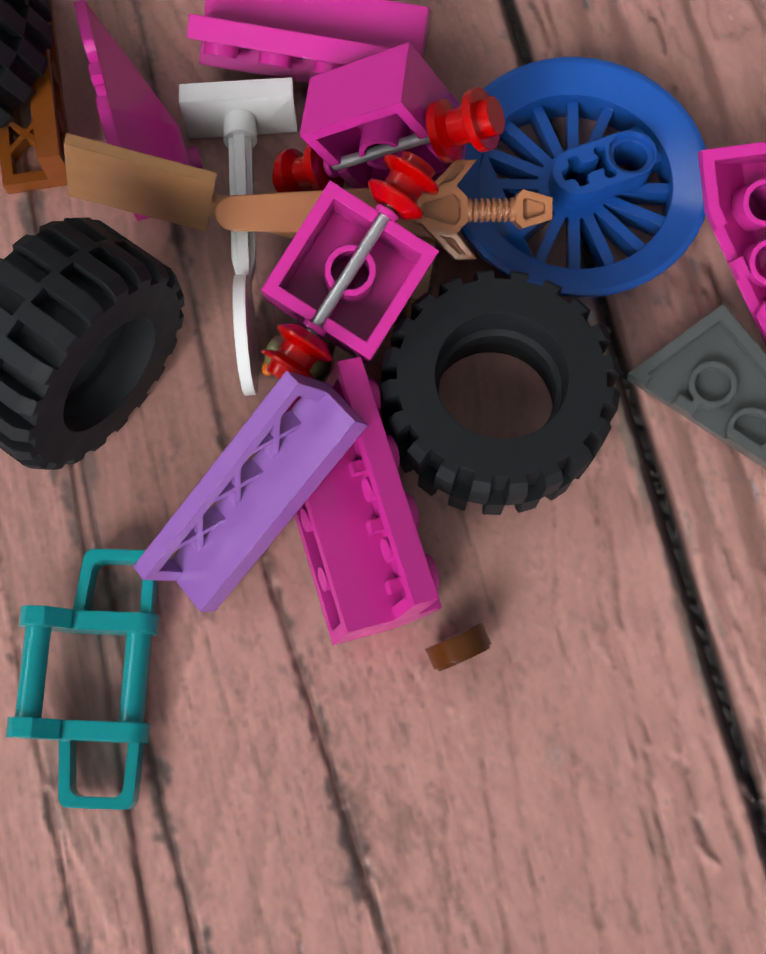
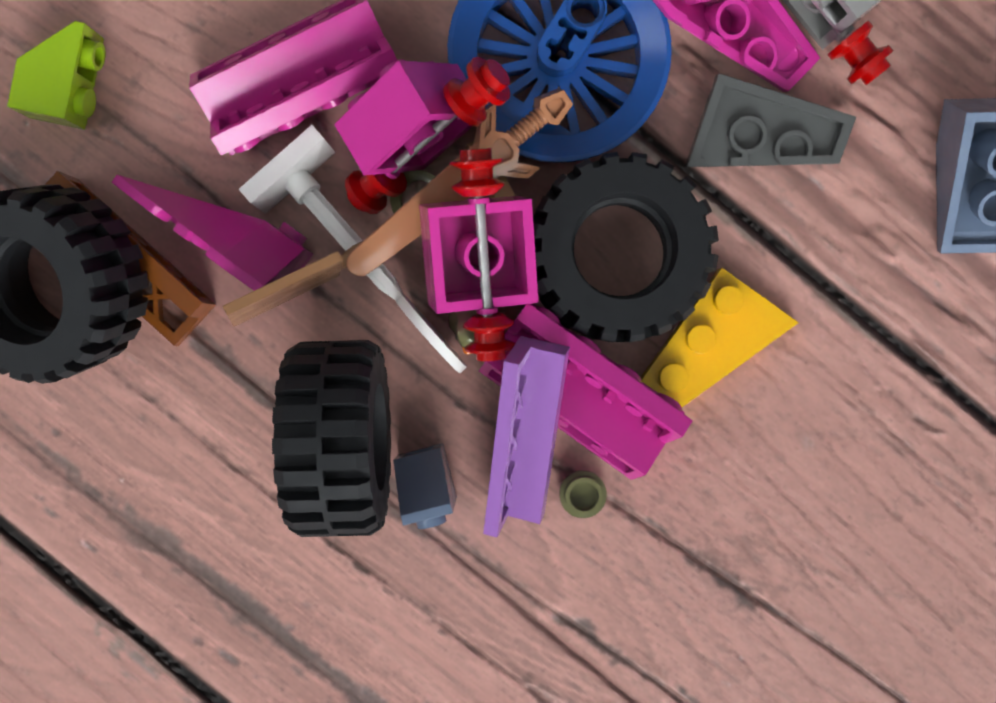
camera: 35 degrees left, 15 degrees up
(117, 478) = (424, 486): none -> sand blue slope
(130, 728) = (550, 621): teal bar -> none
(270, 620) = (582, 494): none -> olive plate
(459, 647) = (709, 426): reddish brown tile -> none
(533, 563) = (715, 339): none -> yellow wing

